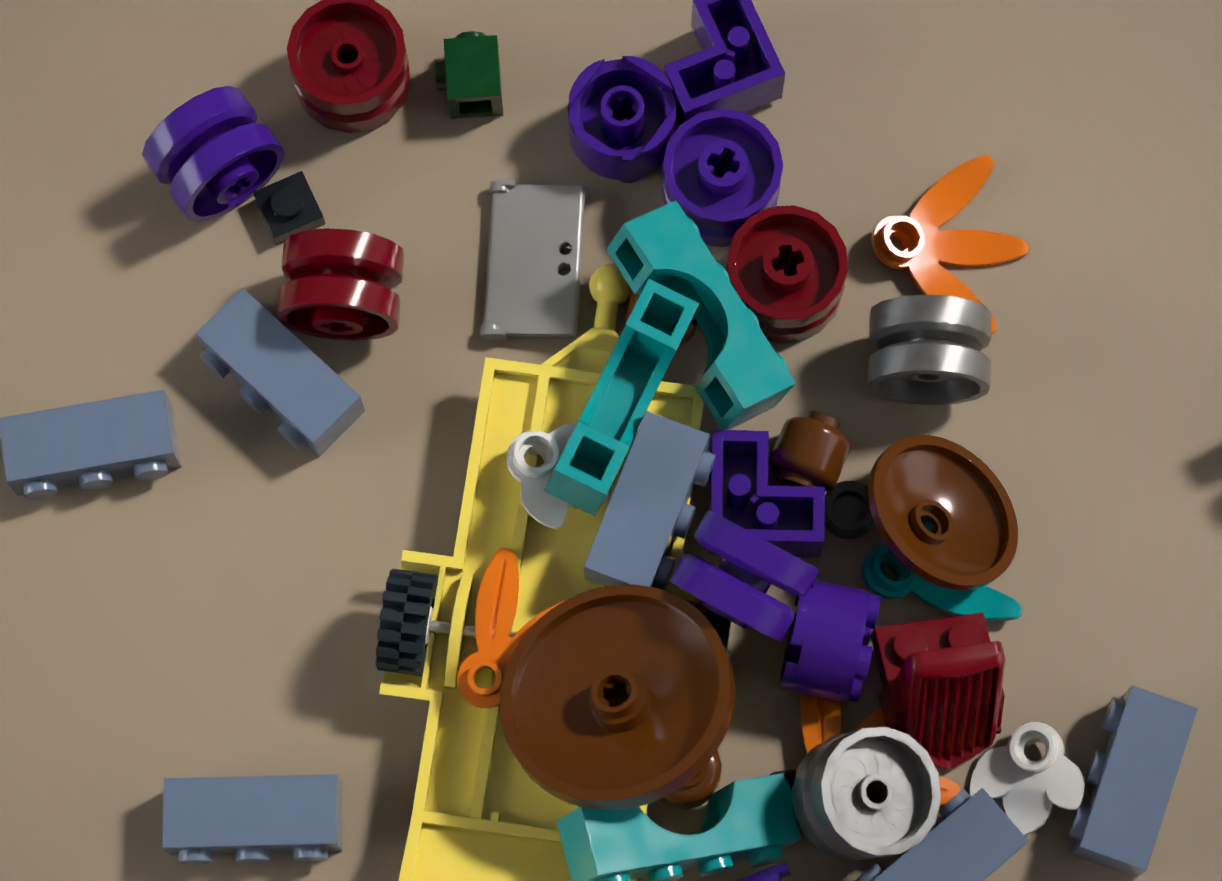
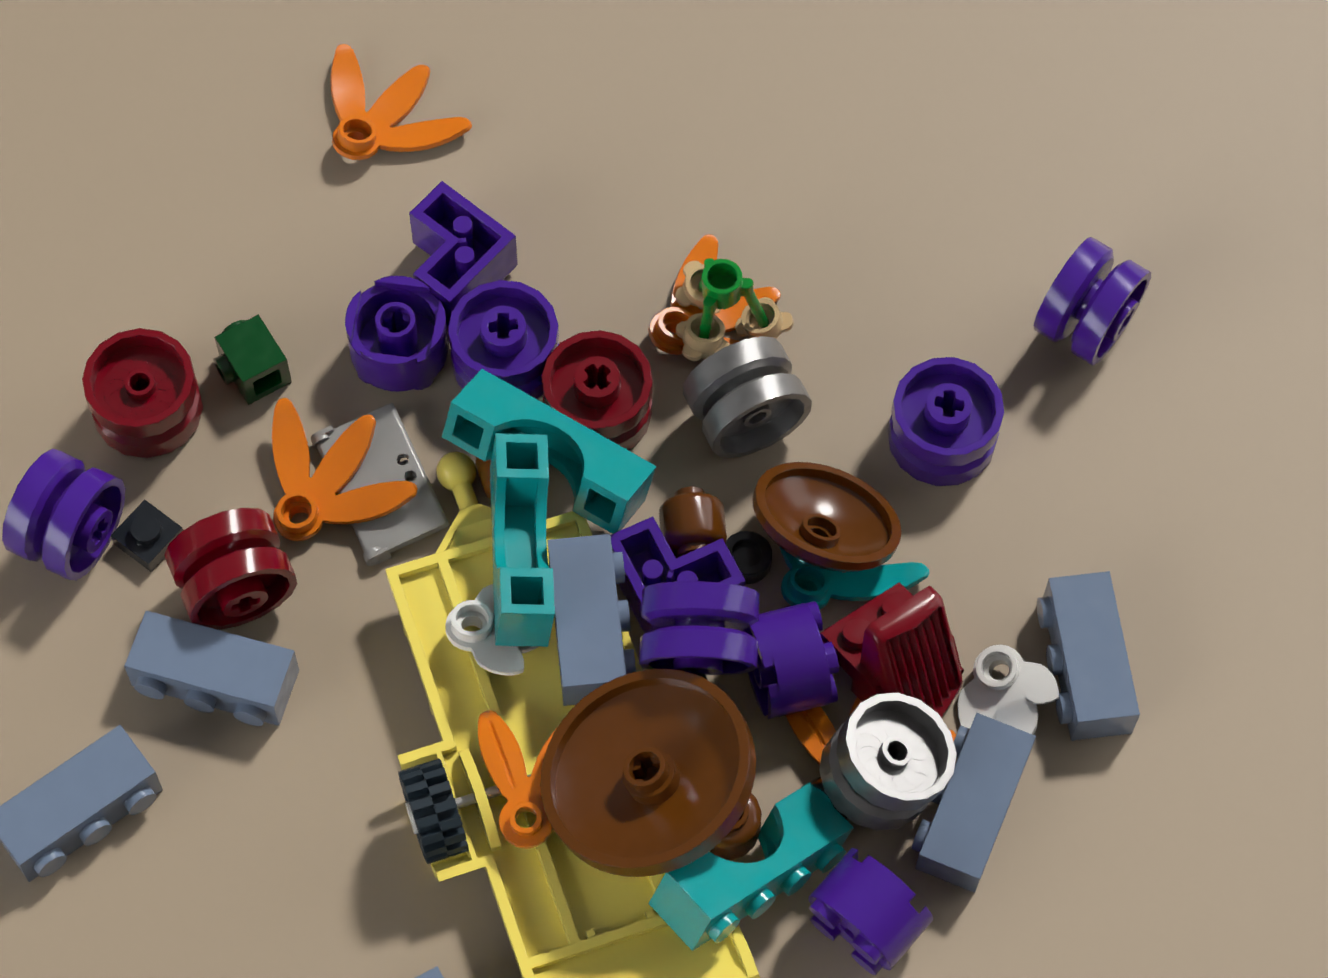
camera: 30 degrees left, 10 degrees down
(496, 228) = (318, 494): none -> orange plant
(958, 229) = (716, 287): none -> plant
(1138, 443) = (945, 421): none -> dark purple wheel

